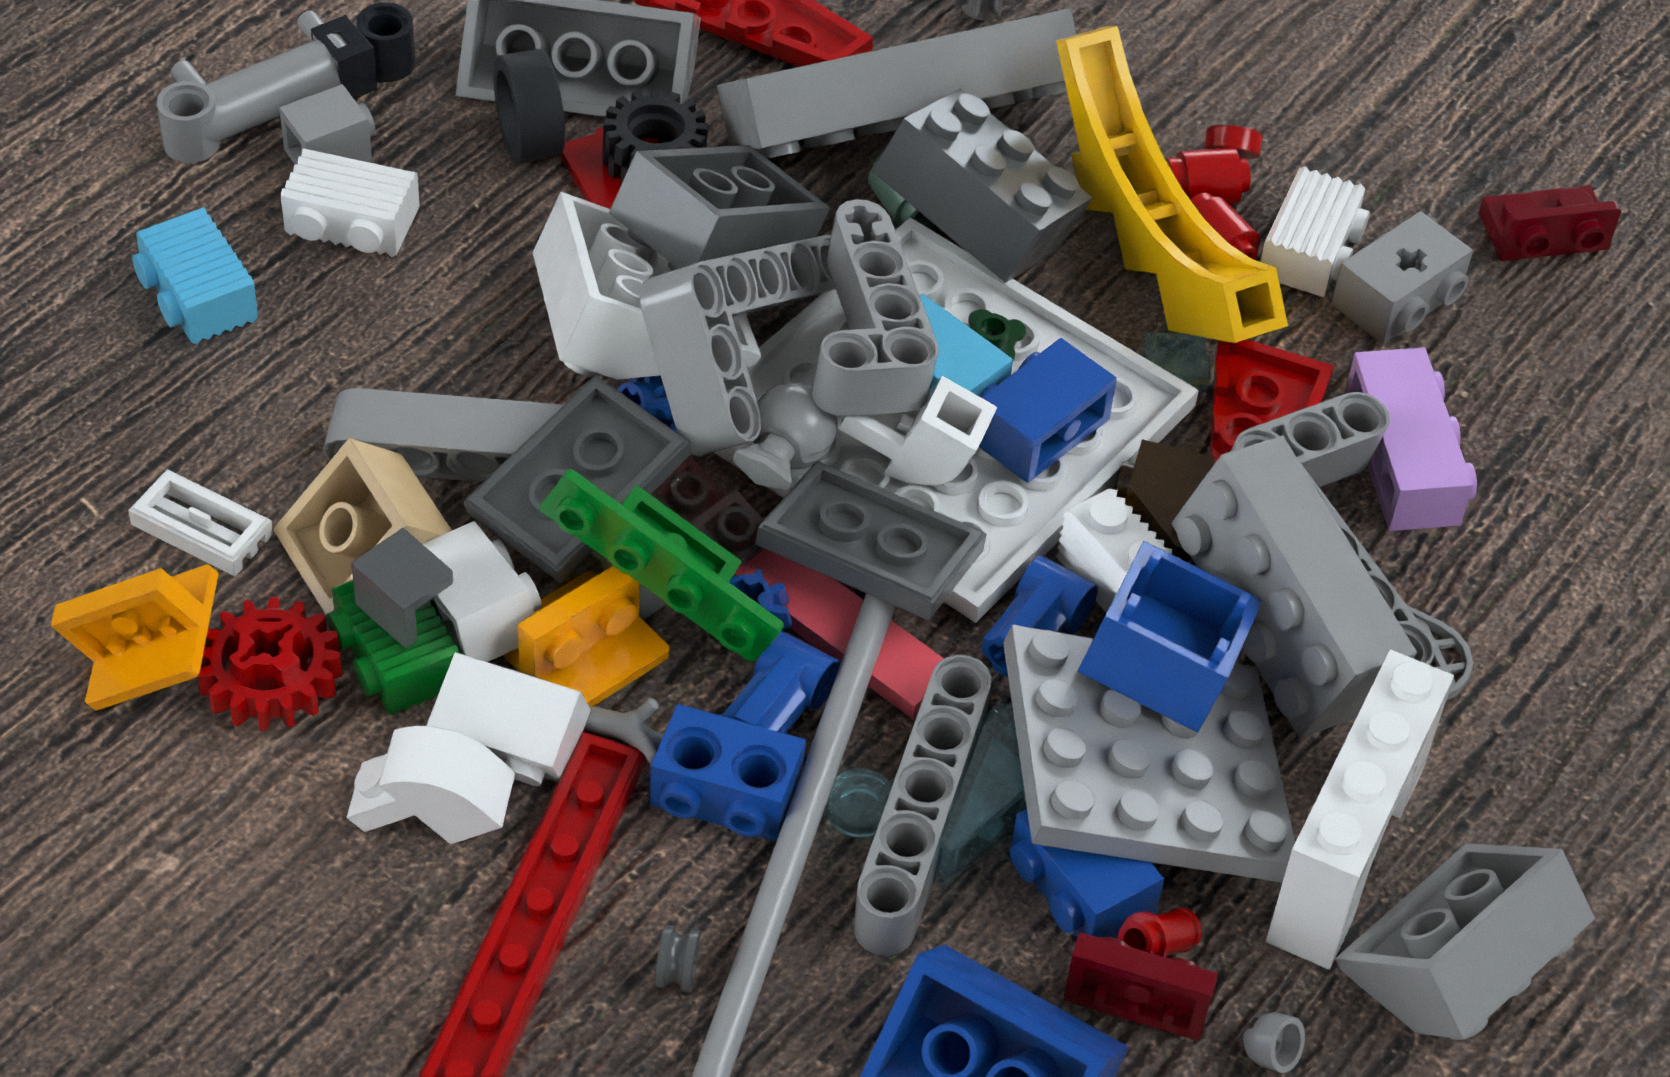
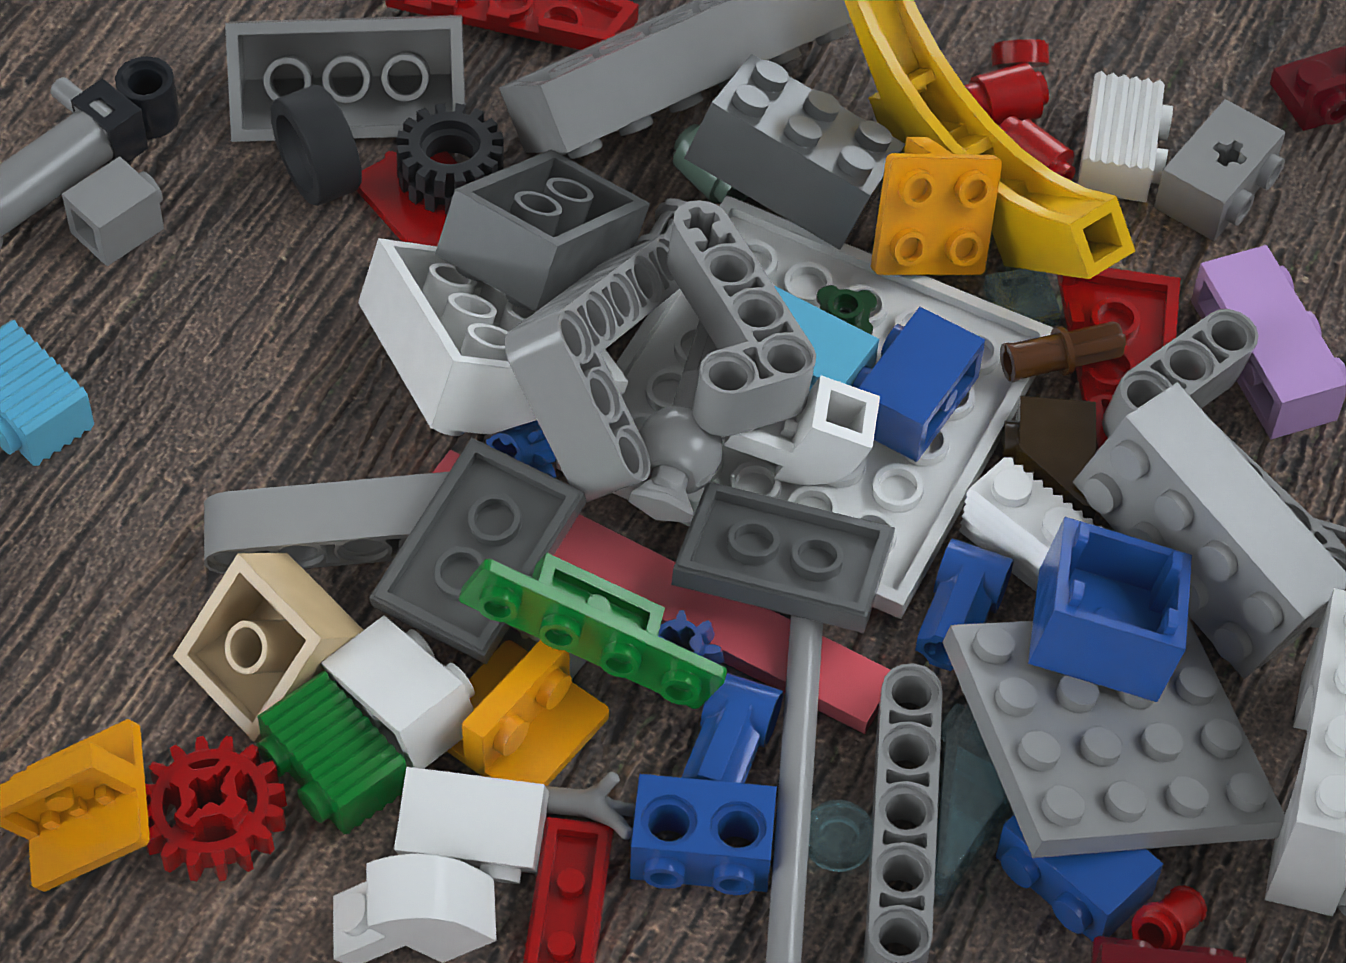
camera: 10 degrees left, 5 degrees up
(192, 527) = (91, 672): white tile -> none
(349, 202) = (158, 282): white brick -> none
(396, 581) = (332, 705): dark grey panel -> none
(701, 502) = (624, 561): clear smoke slope -> none
(1102, 259) = (935, 211): none -> light orange bracket
(1196, 407) = (1062, 351): none -> reddish brown axle

